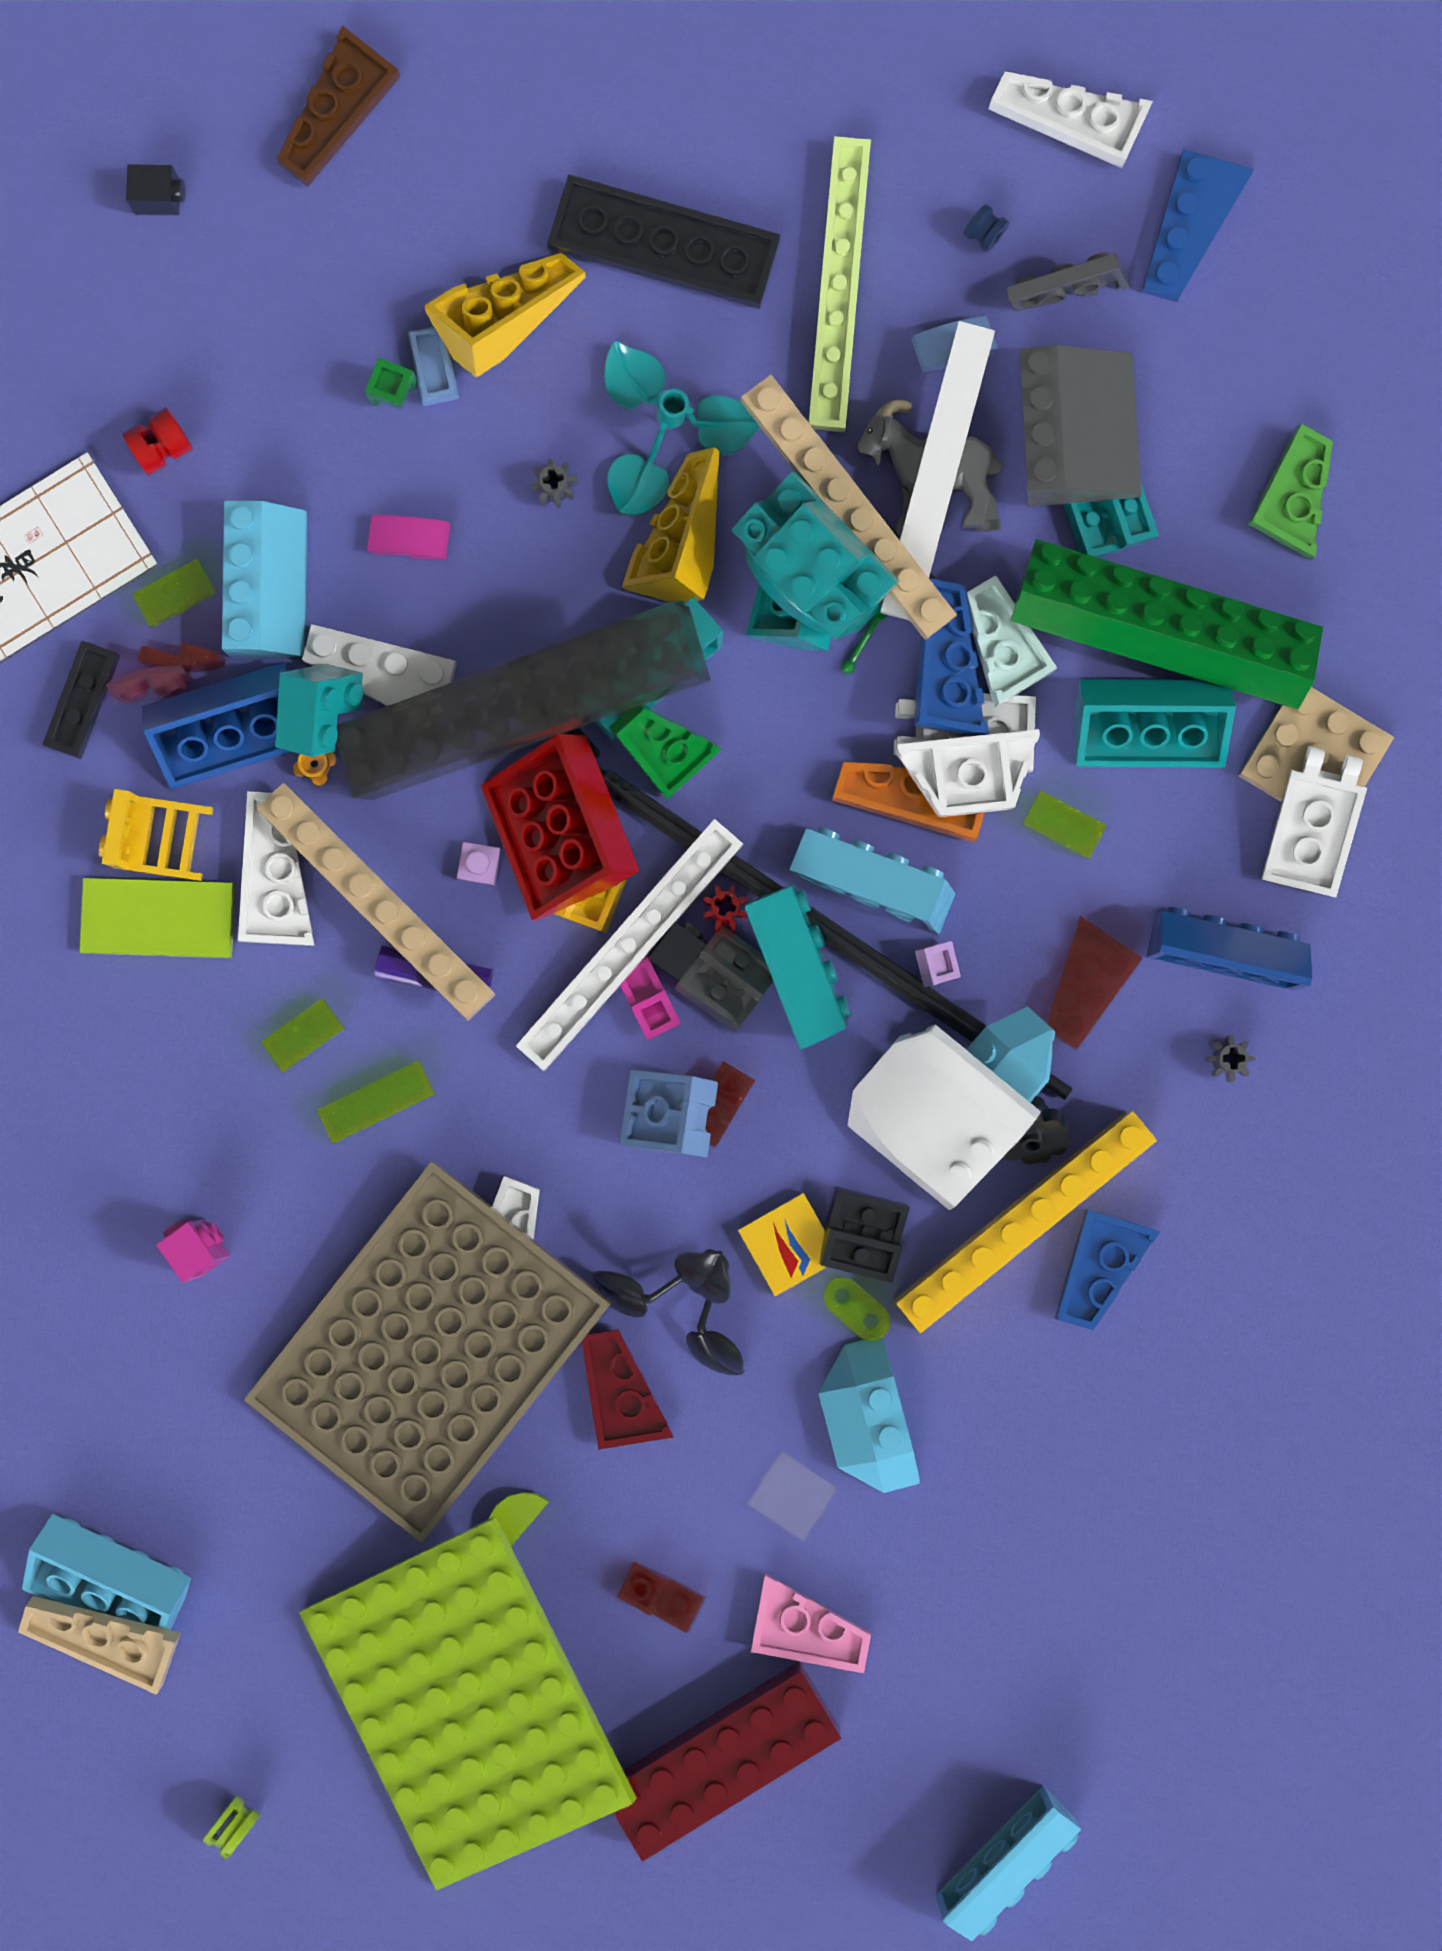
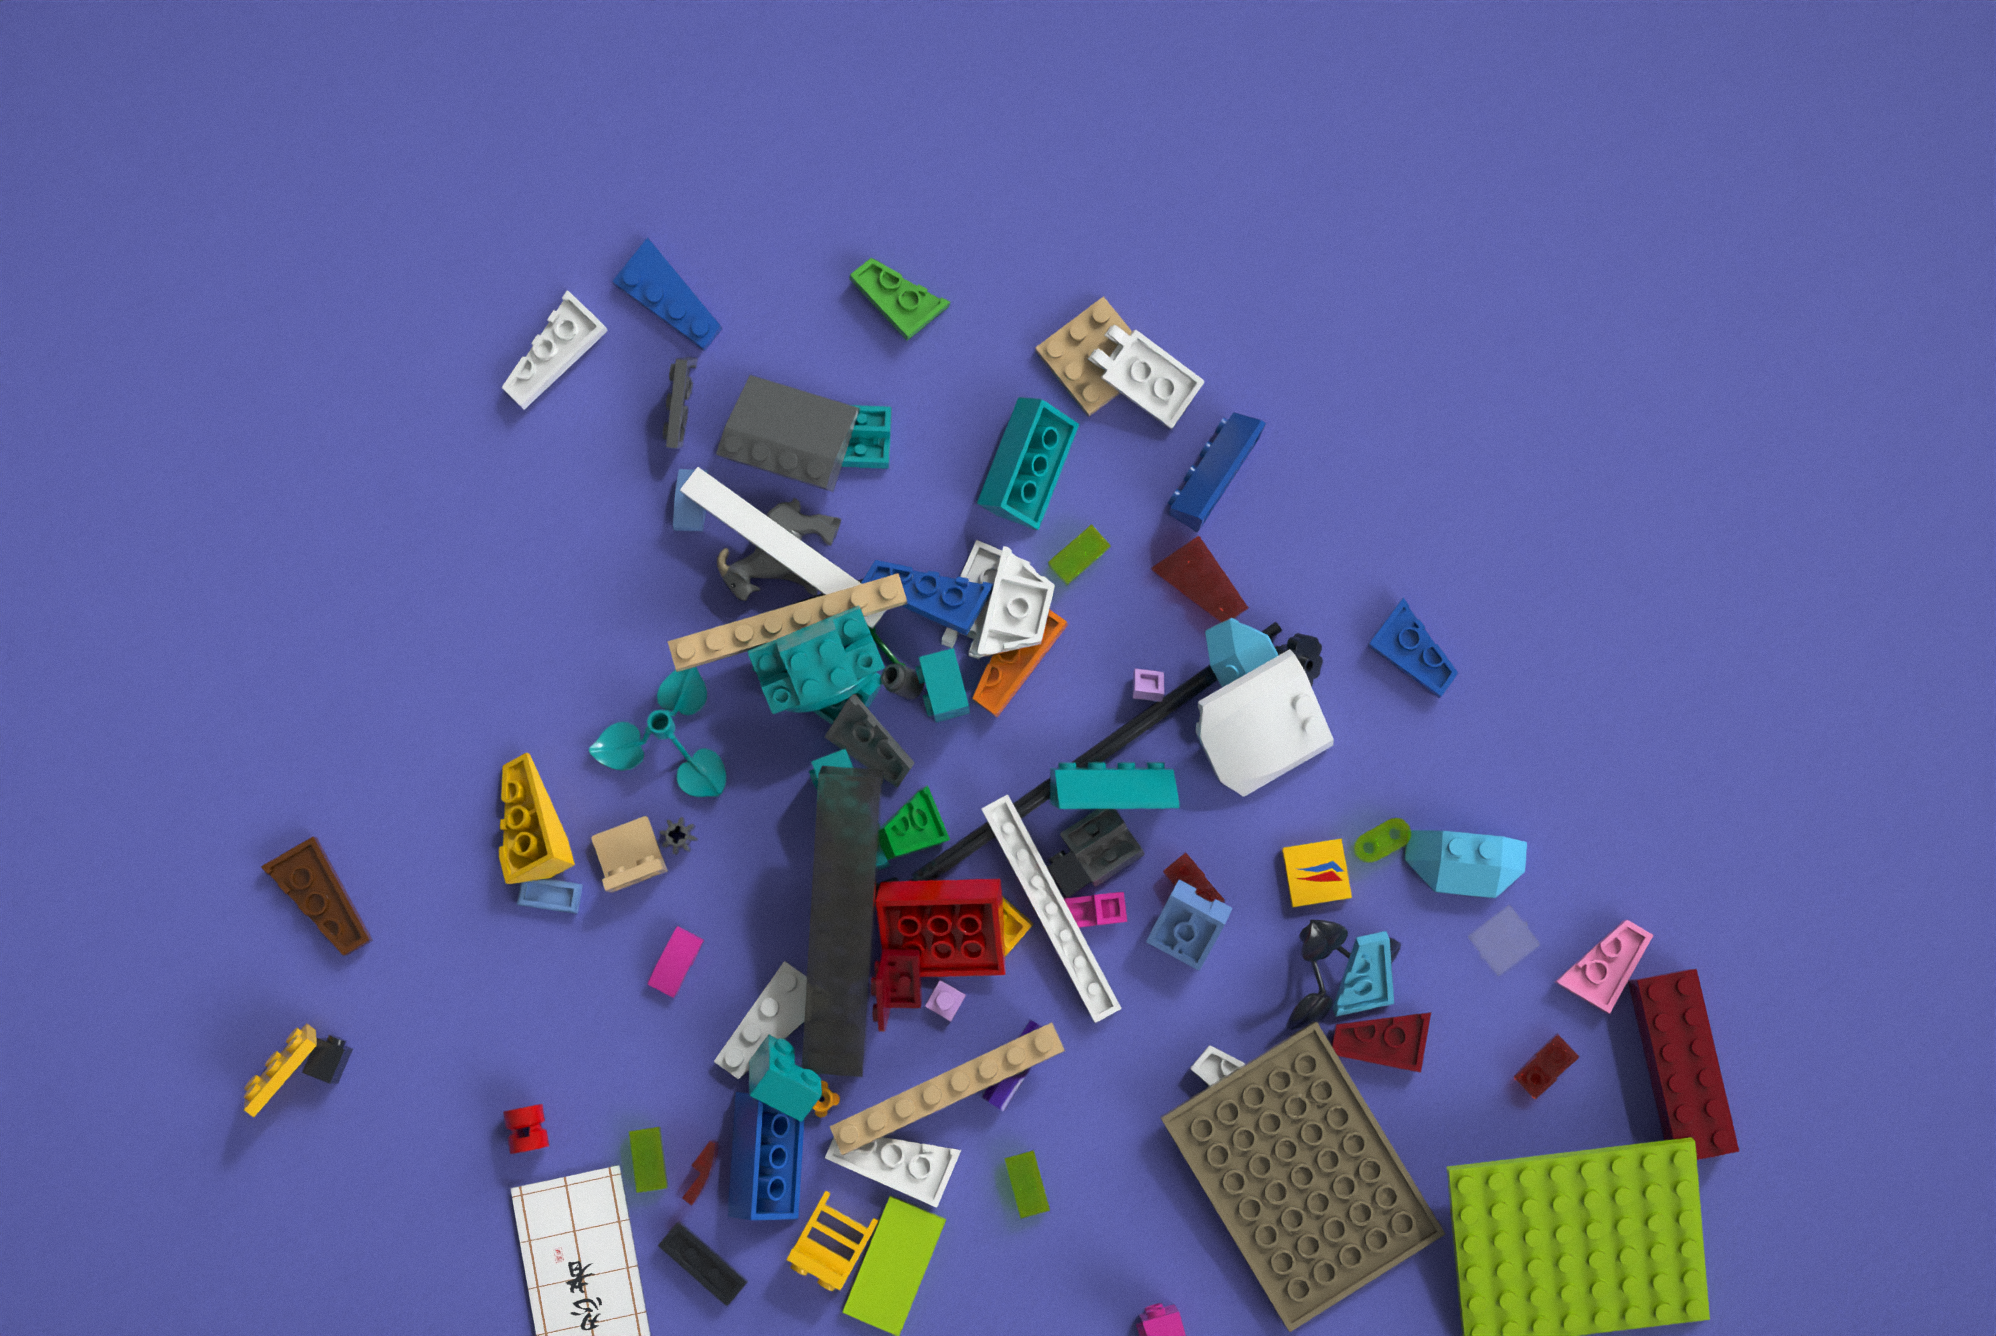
camera: 70 degrees left, 5 degrees down
(121, 136) = (279, 1068): none -> yellow plate
(161, 679) = (712, 1193): clear pink slope -> none
(264, 580) = (666, 1085): medium azure slope -> none
(376, 1102) = (1098, 1146): clear neon green plate -> none
(390, 384) = (554, 931): green panel -> none
(474, 795) = (895, 984): none -> dark red bracket
(511, 435) = (628, 854): none -> tan bracket
(518, 1512) = (1446, 1151): lime tile -> none
(664, 241) = (526, 685): black plate -> none
(681, 547) = (763, 759): yellow wedge -> none
(685, 1345) = (1367, 976): none -> medium azure wing
(719, 899) = (1048, 817): red gear -> none
(745, 658) = (869, 741): none -> dark grey wing
(832, 672) = (901, 681): none -> dark grey brick
(839, 284) = (612, 567): yellowish green plate -> none
(839, 723) = (944, 685): none -> teal brick
(863, 1234) = (1329, 814): black slope -> none
(873, 878) = (1067, 709): medium azure wedge -> none
(986, 228) = (613, 444): dark blue wheel -> none
(1007, 650) = (928, 546): light aqua wing -> none
(1007, 1865) = (1827, 881): medium azure slope -> none
(1024, 1220) = (1361, 693): yellow brick -> none
(1168, 624) = (960, 425): green brick -> none
(1235, 1050) = (1287, 500): dark grey gear -> none

